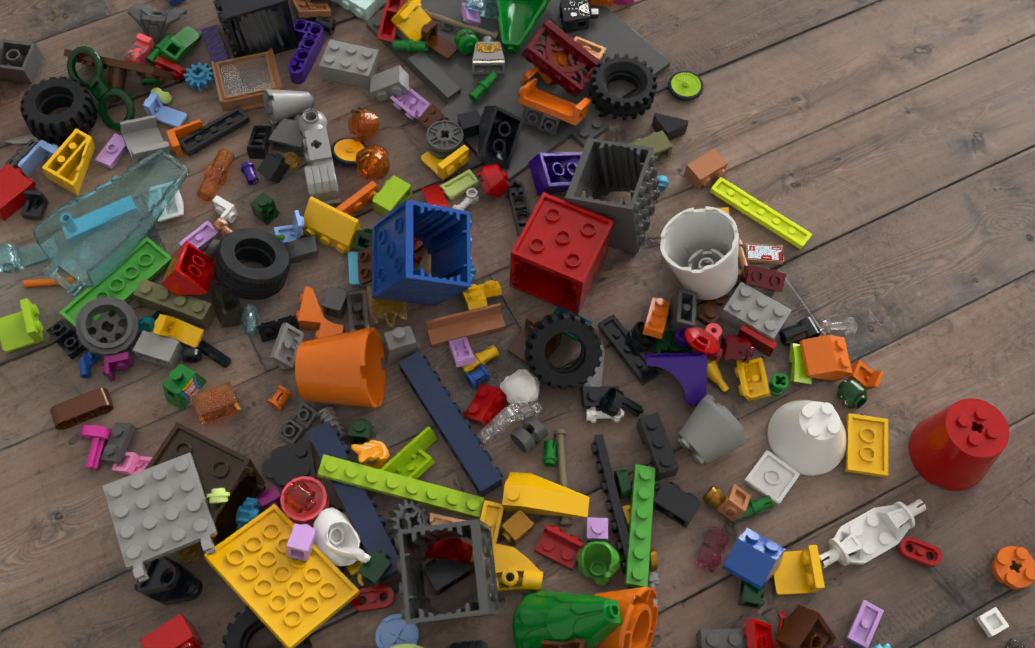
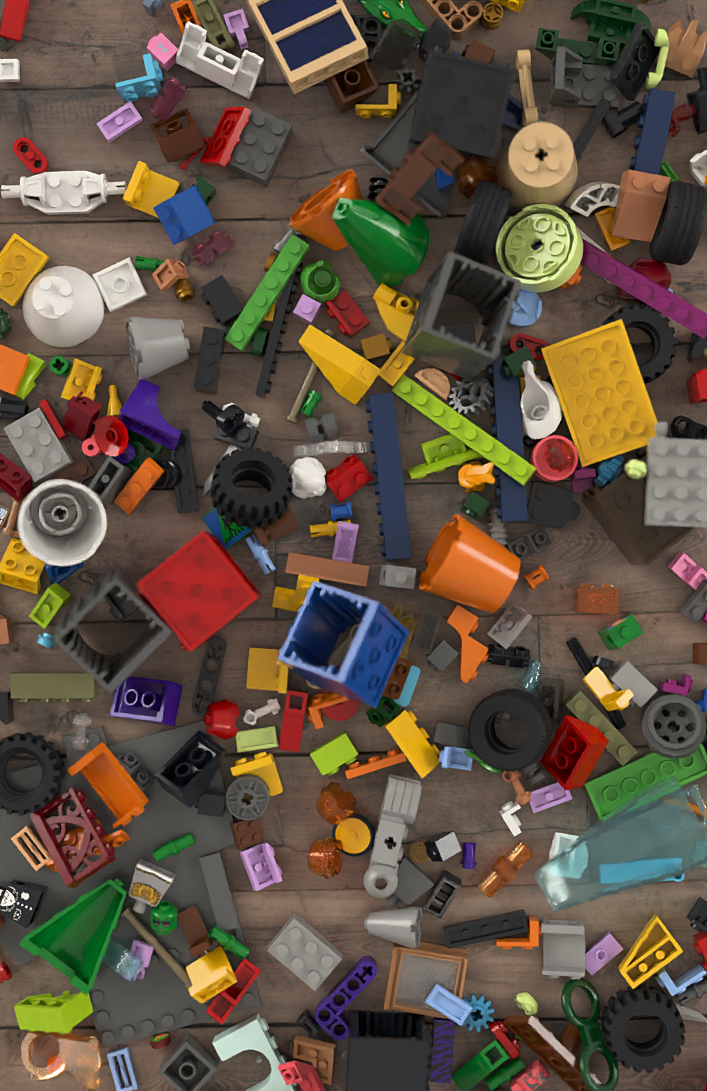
camera: 150 degrees left, 25 degrees up
(146, 320) = (633, 716): teal plate -> none
(164, 114) = (530, 977): light blue bracket -> none
(222, 67) = (448, 1004): none -> light blue tile
(264, 208) = (470, 800): dark green brick -> none
(301, 542) = (574, 413): lavender brick -> none
(389, 83) = (274, 899): light grey brick -> none
(482, 234) = (266, 670): none -> yellow bracket
(523, 311) = (260, 554): none -> light blue pin
(593, 123) = (81, 721): none -> clear bar
(672, 205) = (50, 604): none -> lime plate

